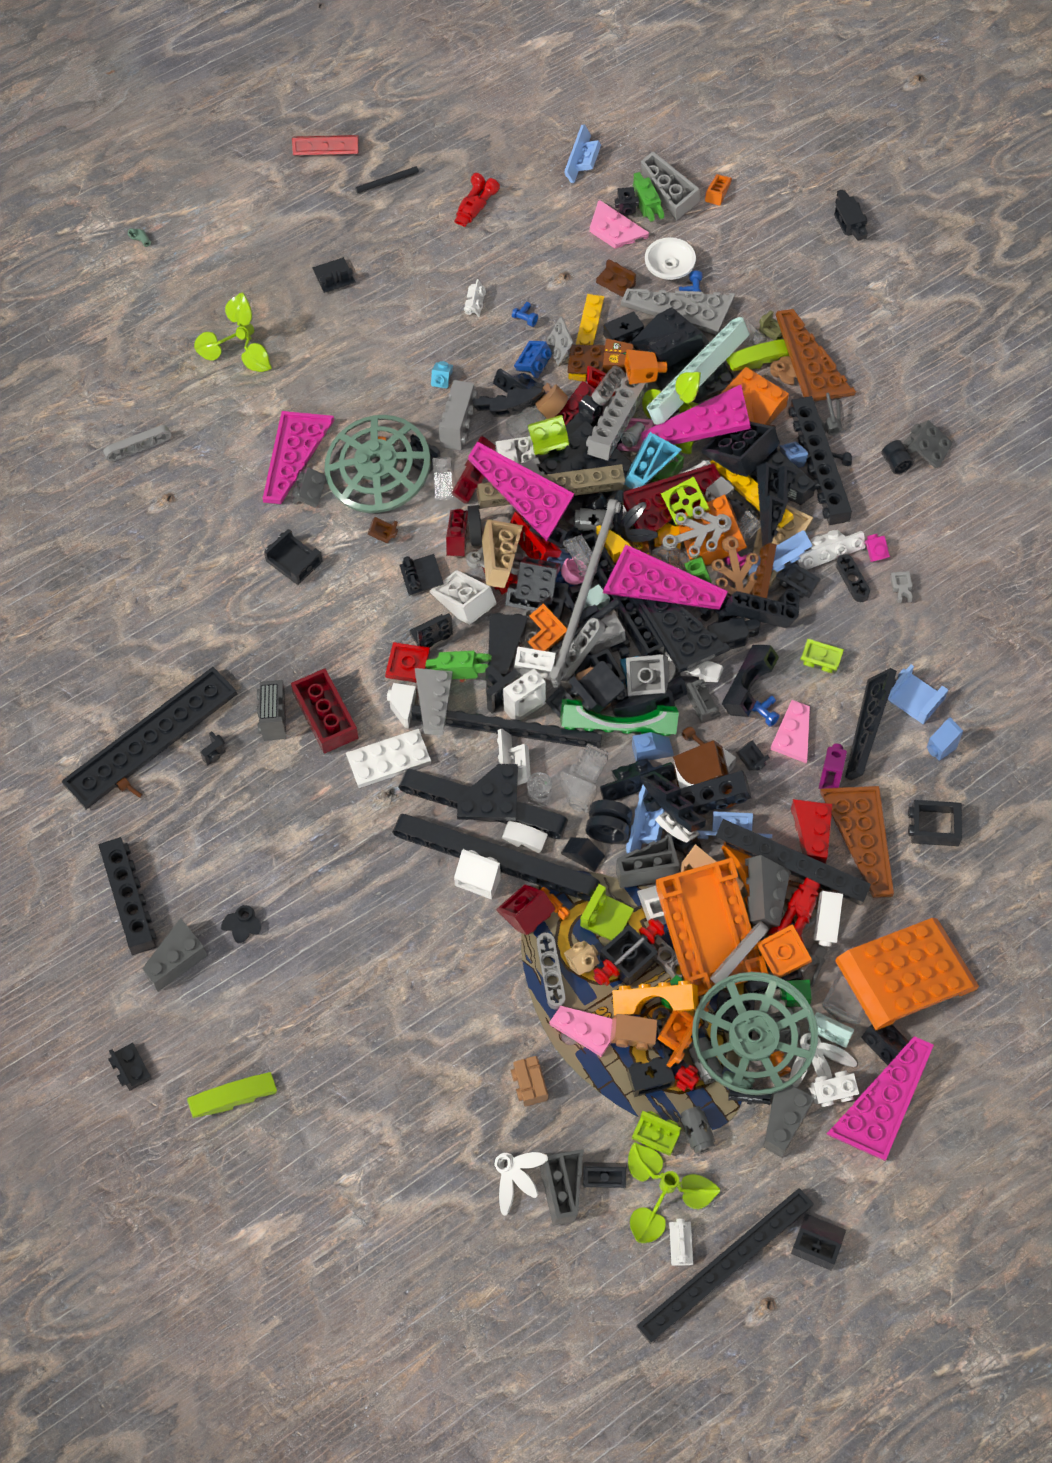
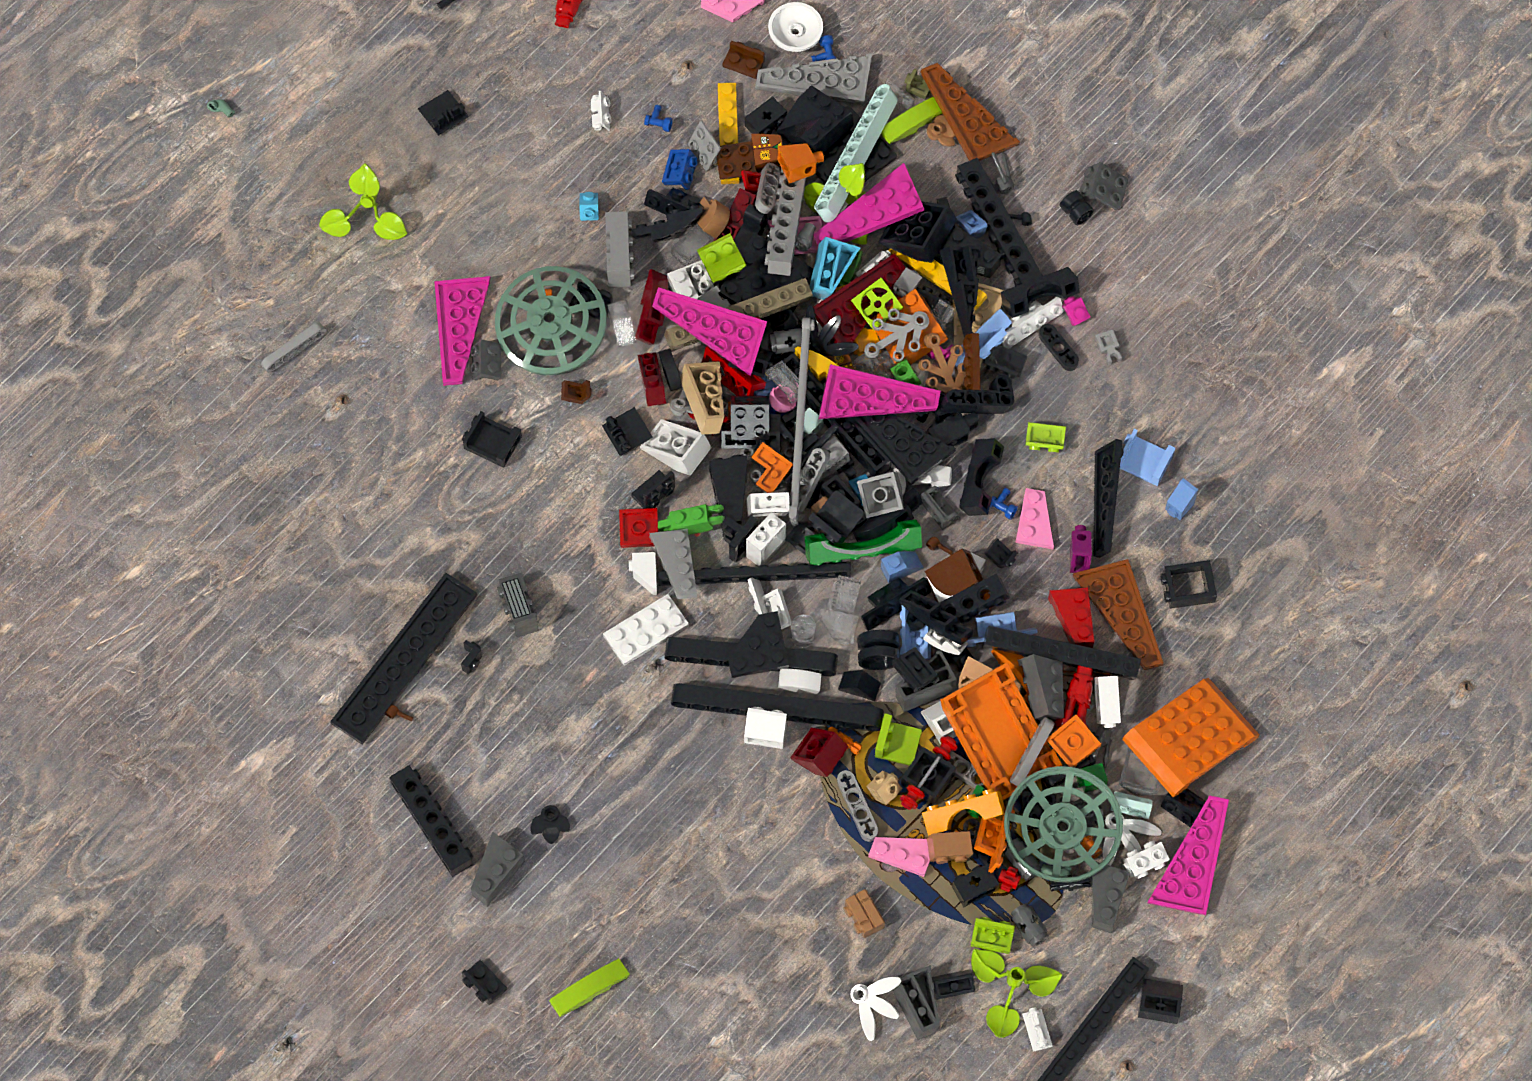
camera: 15 degrees left, 5 degrees up
(324, 710) = (571, 595): dark red brick -> none
(639, 847) = (914, 669): none -> black plate
(762, 398) = (926, 168): orange slope -> none
(866, 519) = (1058, 283): none -> black arch

